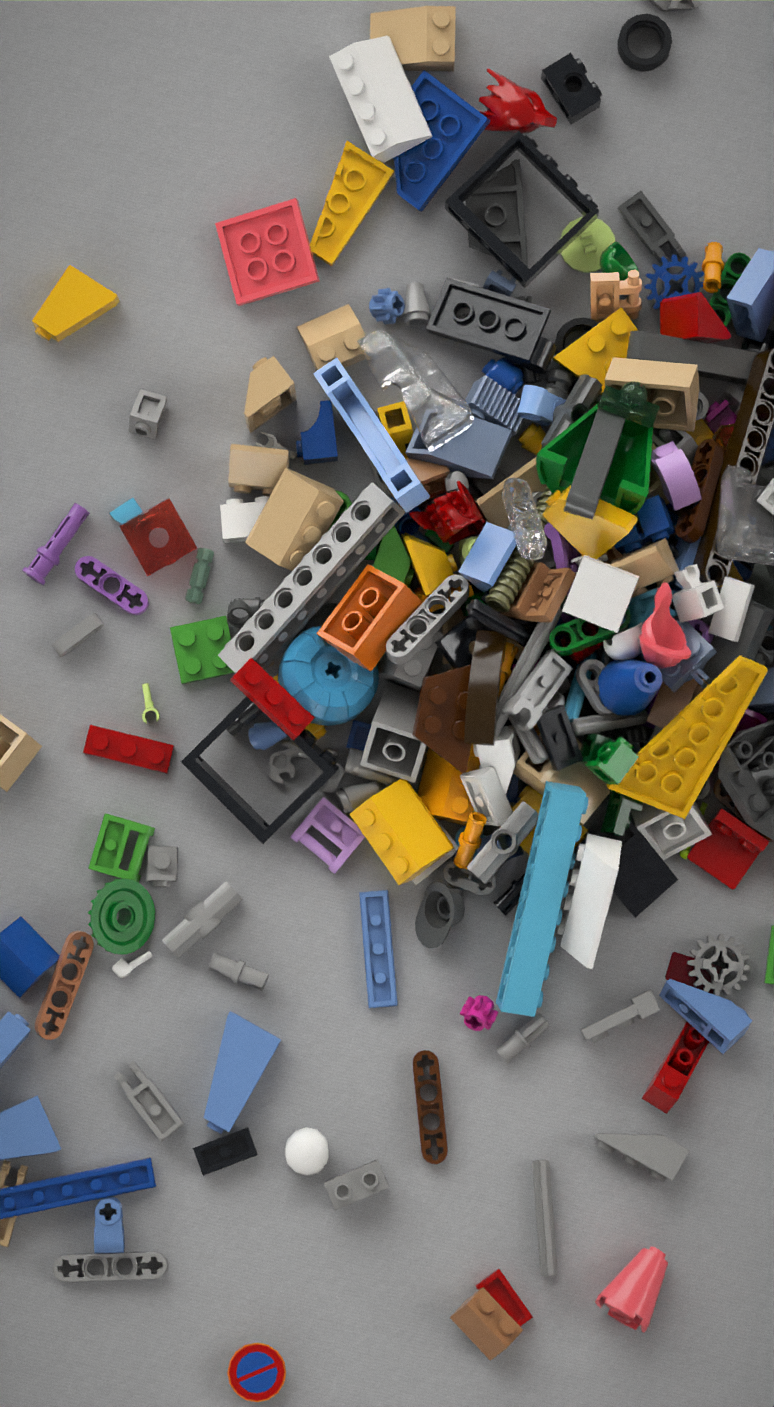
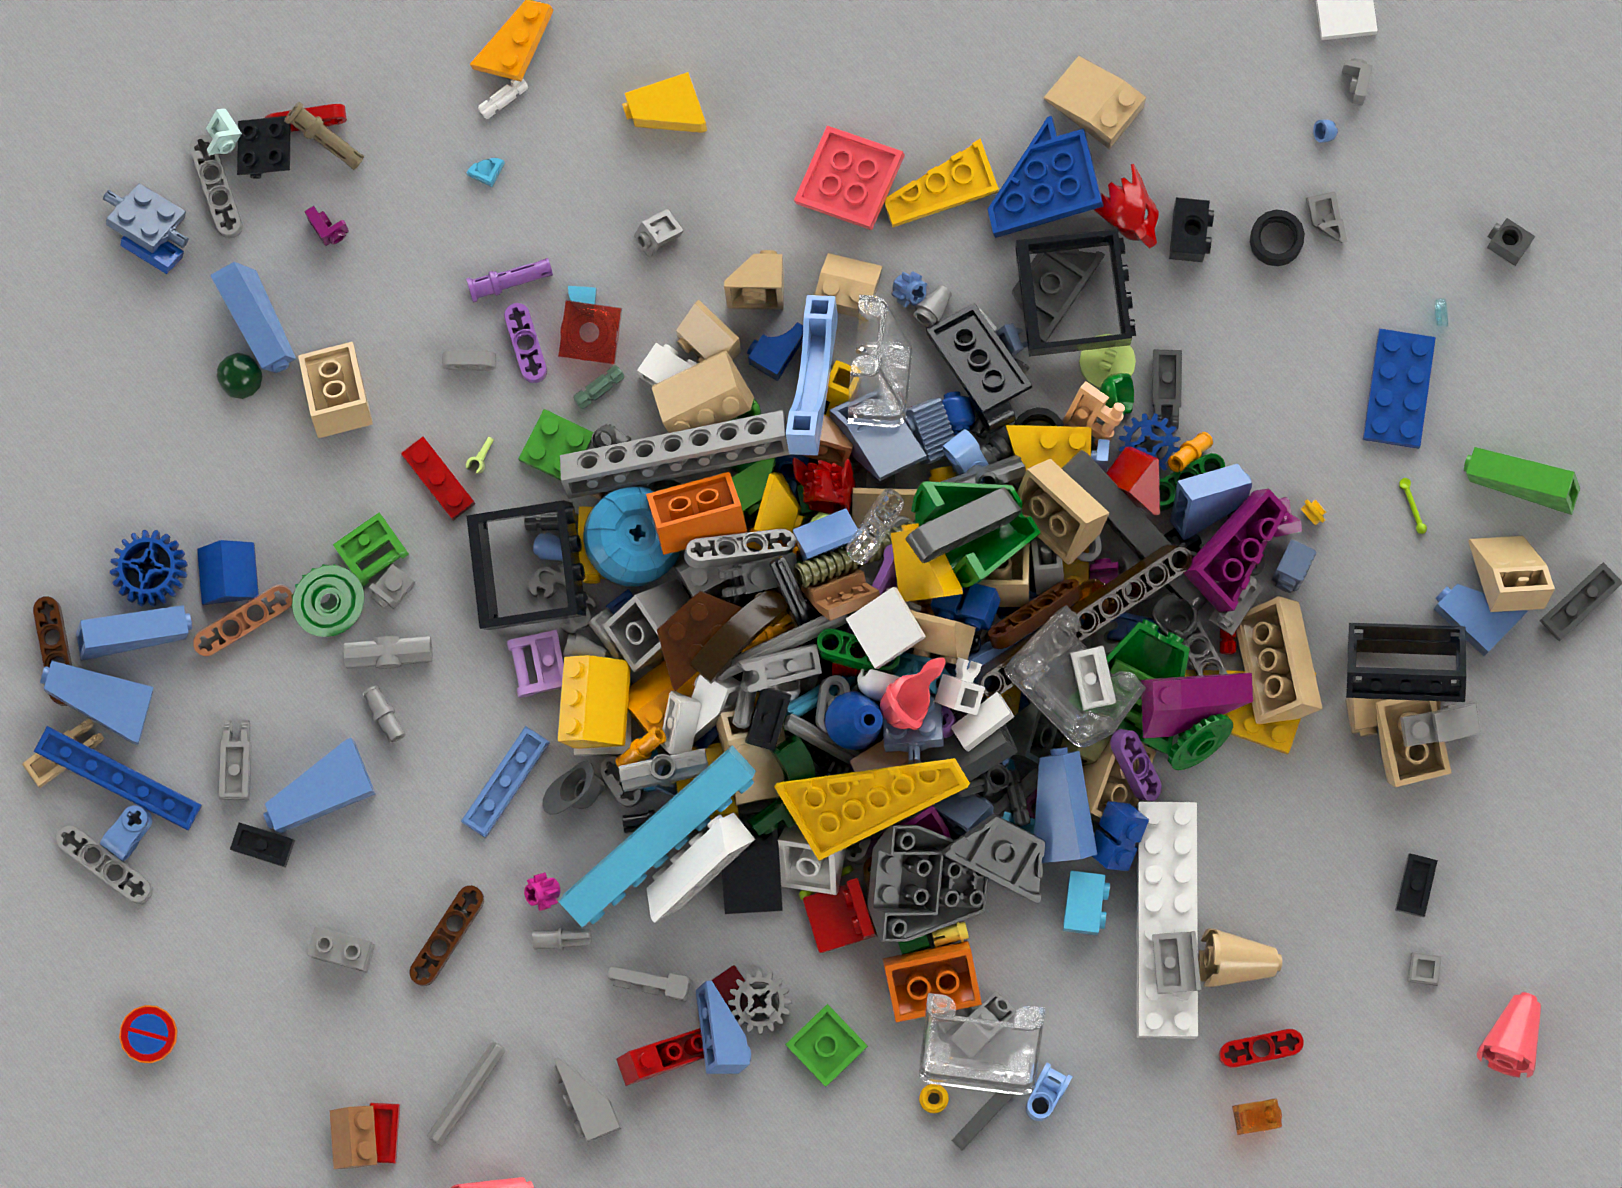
camera: 45 degrees right, 5 degrees down
(123, 969) = (298, 644): white hand -> none
(272, 443) = (737, 331): white hand -> none
(272, 698) = (572, 518): red plate -> none
(307, 1151) = (324, 895): white hair -> none
(380, 97) = (1031, 124): white slope -> none
(451, 481) = (854, 458): light grey hinge -> none
(458, 631) = (754, 576): none -> dark grey hinge
(613, 761) = (794, 768): green brick -> none
(629, 403) = (1031, 502): clear green tile -> none
(644, 321) = (1101, 455): none -> light blue plate
(675, 475) = (1022, 585): lavender brick -> none

